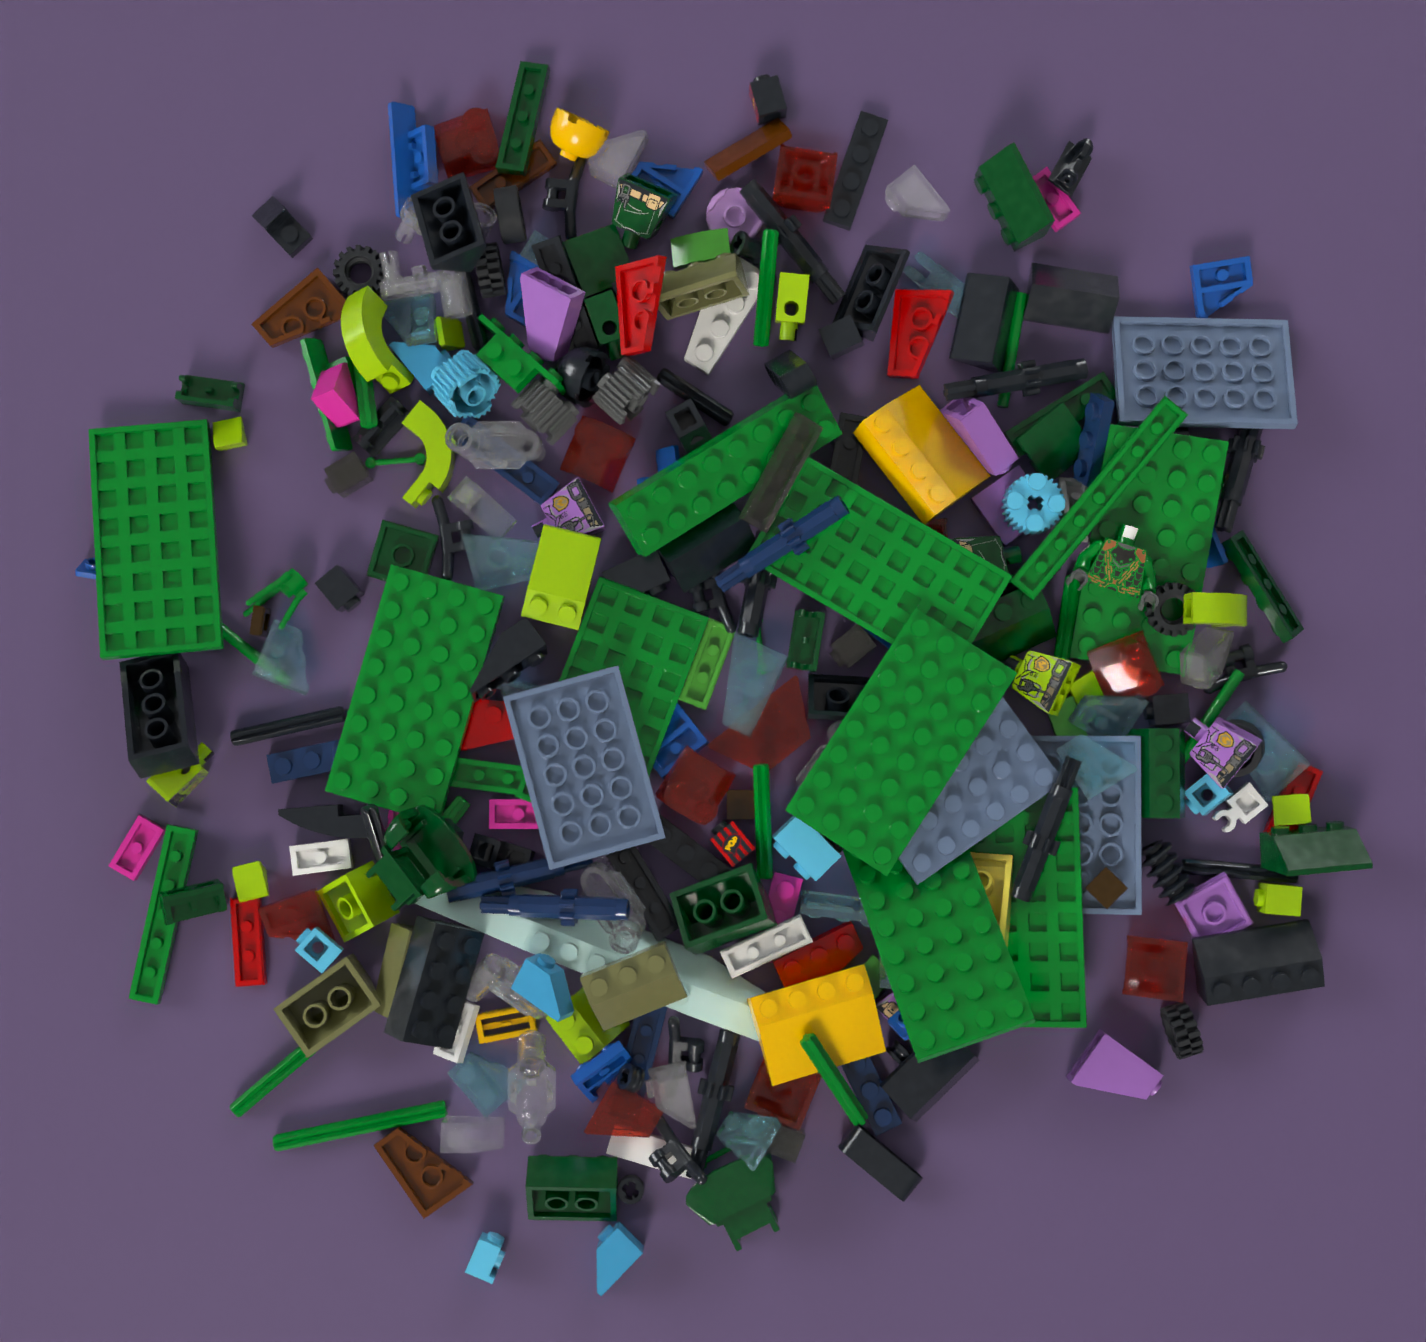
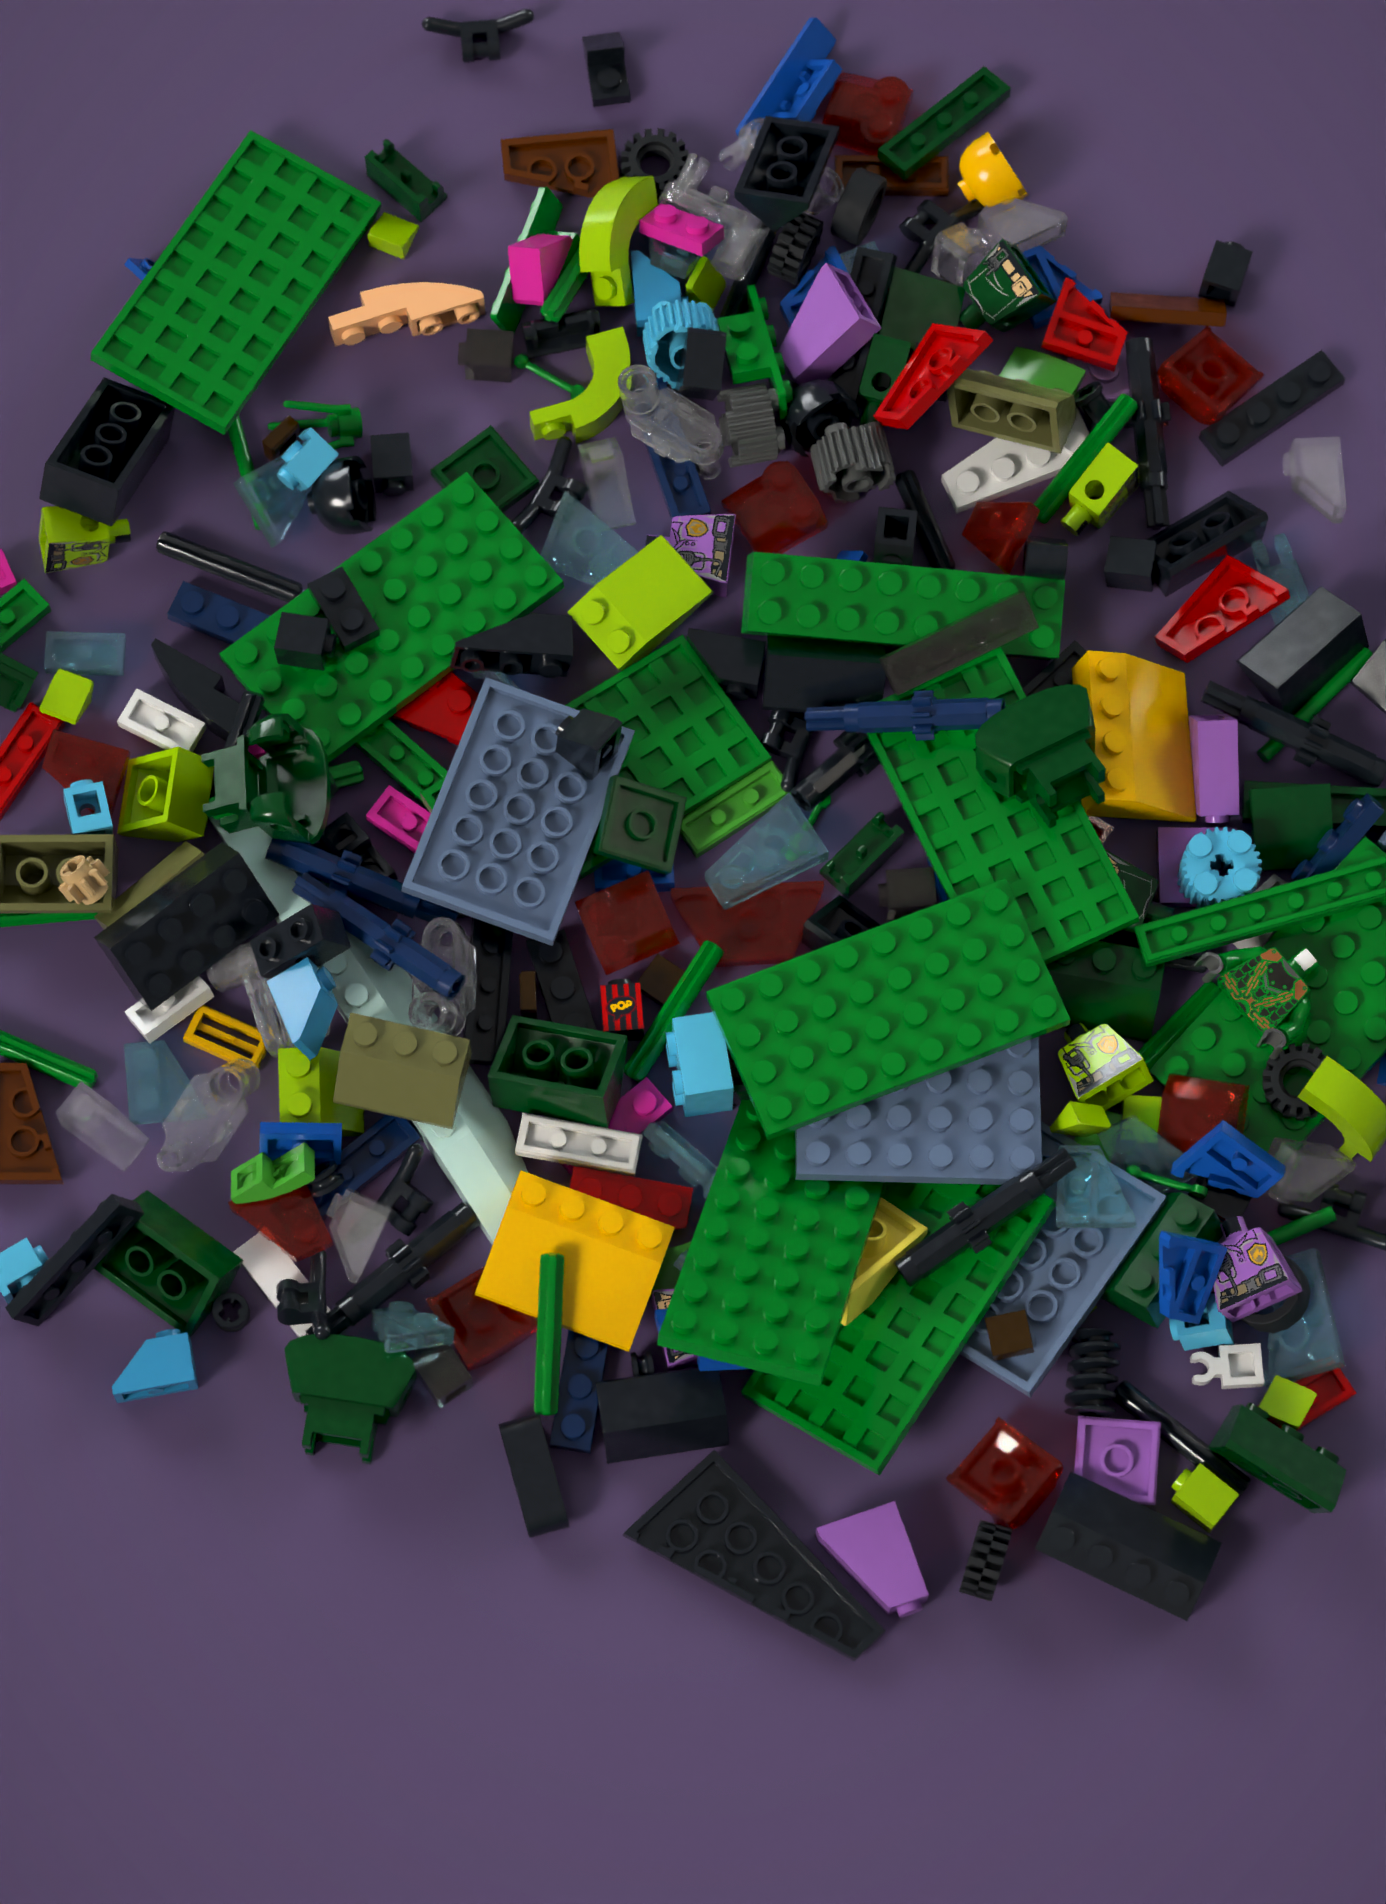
camera: 35 degrees right, 15 degrees down
(181, 256) = (479, 29): none -> black piece
(240, 844) = (85, 653): none -> clear light blue plate
(283, 471) = (421, 305): none -> light nougat slope
(287, 630) = (306, 460): none -> medium azure brick
(327, 633) = (343, 497): none -> black cylinder
(352, 1004) = (84, 880): none -> tan gear
(374, 752) = (304, 641): none -> black brick
(382, 711) = (344, 609): none -> black plate
(411, 309) = (681, 229): none -> dark pink plate
(489, 393) = (701, 364): none -> black slope
(513, 948) = (308, 933): none -> black brick
(520, 1233) = (74, 1260): none -> black plate
(595, 202) = (958, 253): none -> clear slope
(597, 698) = (589, 740): none -> black slope
(598, 1102) = (264, 1178): none -> bright green slope
(663, 723) = (640, 825): none -> dark green tile
(668, 872) = (528, 995): none -> dark brown tile
(707, 201) = (1083, 330): none -> red wing
(748, 373) = (1001, 530): none -> clear red wing
(885, 509) = (1049, 740): none -> dark green piece
(1031, 1118) = (737, 1543): none -> black wing
(1057, 722) = (1081, 1120): none -> lime slope
(1108, 730) = (1196, 1190): none -> green hinge
(1167, 689) = (1230, 1162): none -> blue wing
(1191, 781) = (1187, 1275): none -> blue wing

